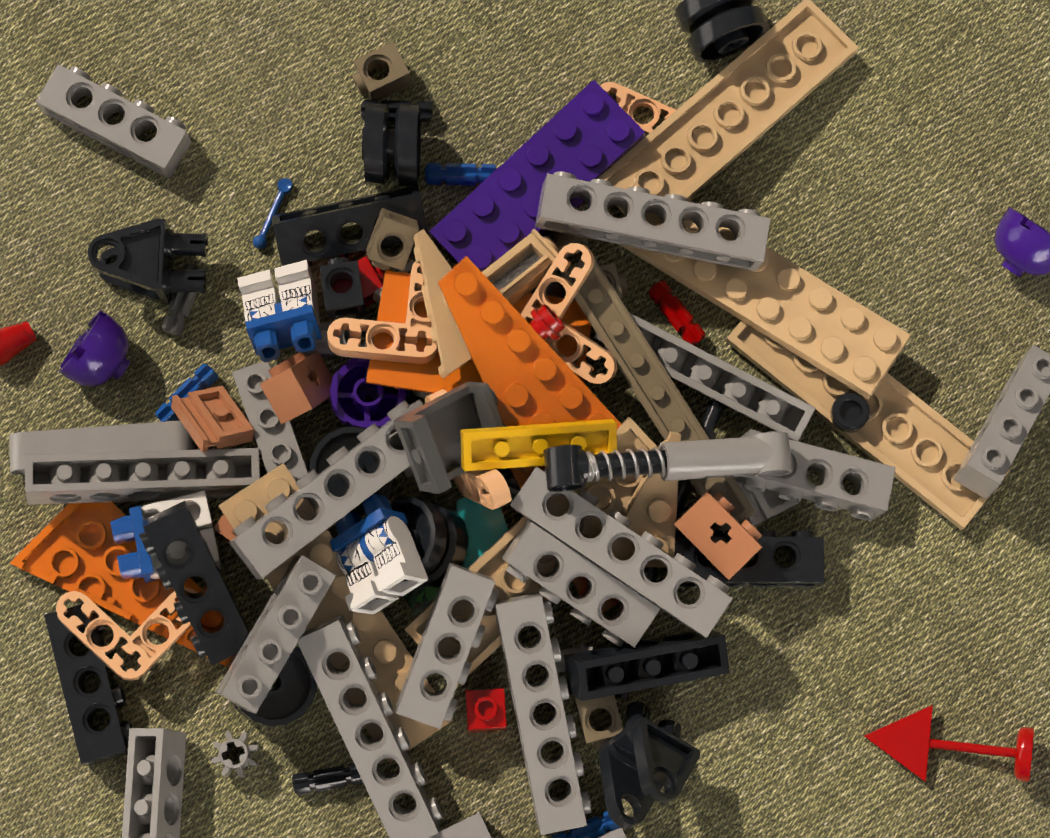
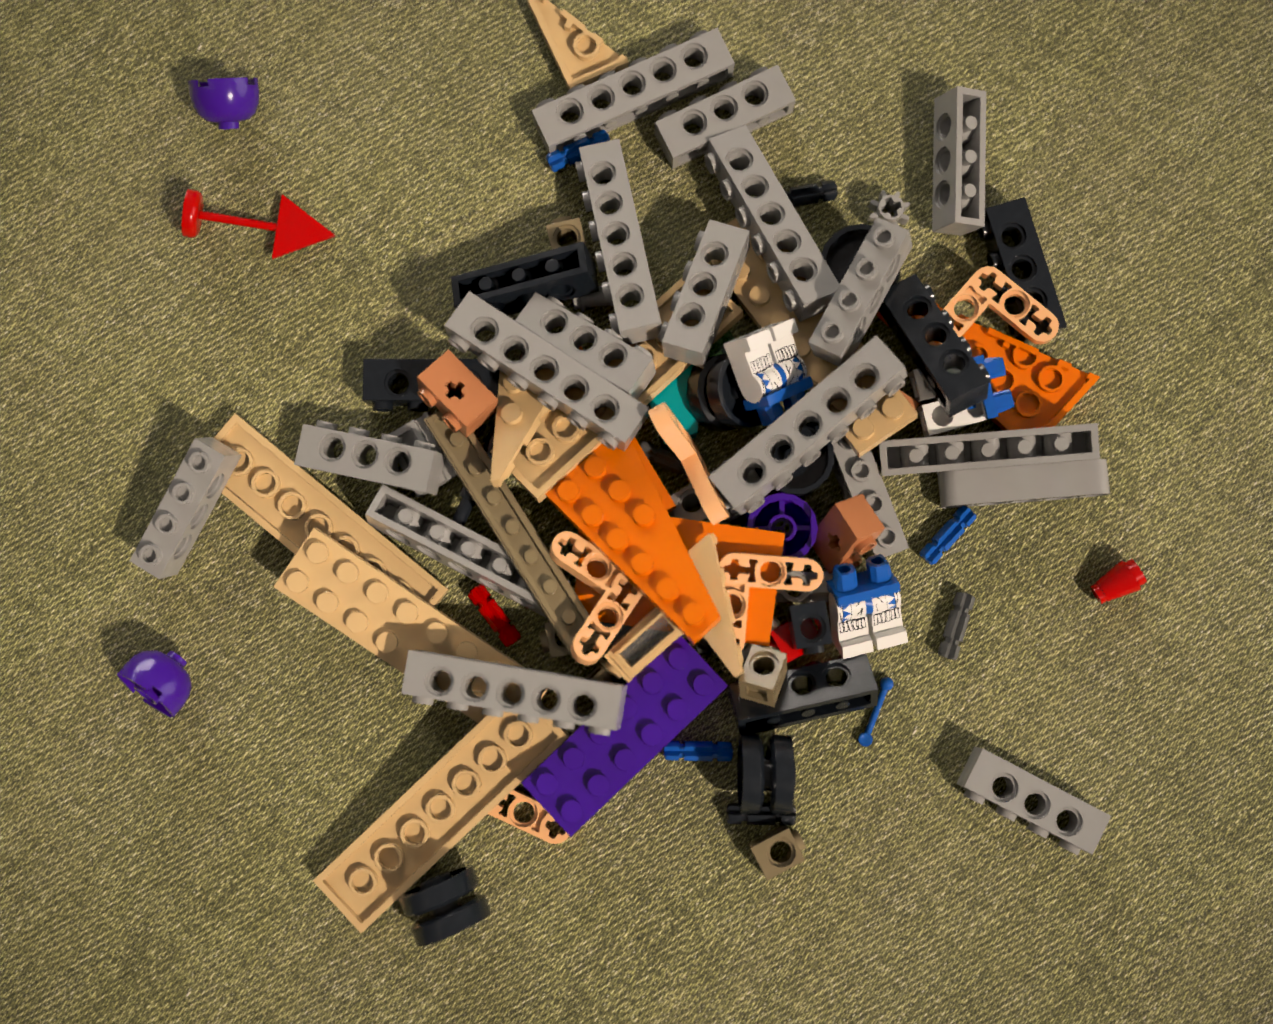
camera: 175 degrees right, 5 degrees up
(97, 353) = (1034, 569): dark purple cylinder -> none
(147, 260) = (993, 656): black piece -> none
(212, 418) = (924, 505): nougat plate -> none
(433, 432) = (703, 475): dark grey panel -> none
(486, 710) = (668, 249): red brick -> none
(525, 443) = (623, 465): yellow plate -> none
(546, 323) = (615, 583): red plate -> none
(641, 763) = (528, 197): black piece -> none
(759, 455) = (418, 462): piece -> none
(850, 412) = (334, 517): black tile -> none

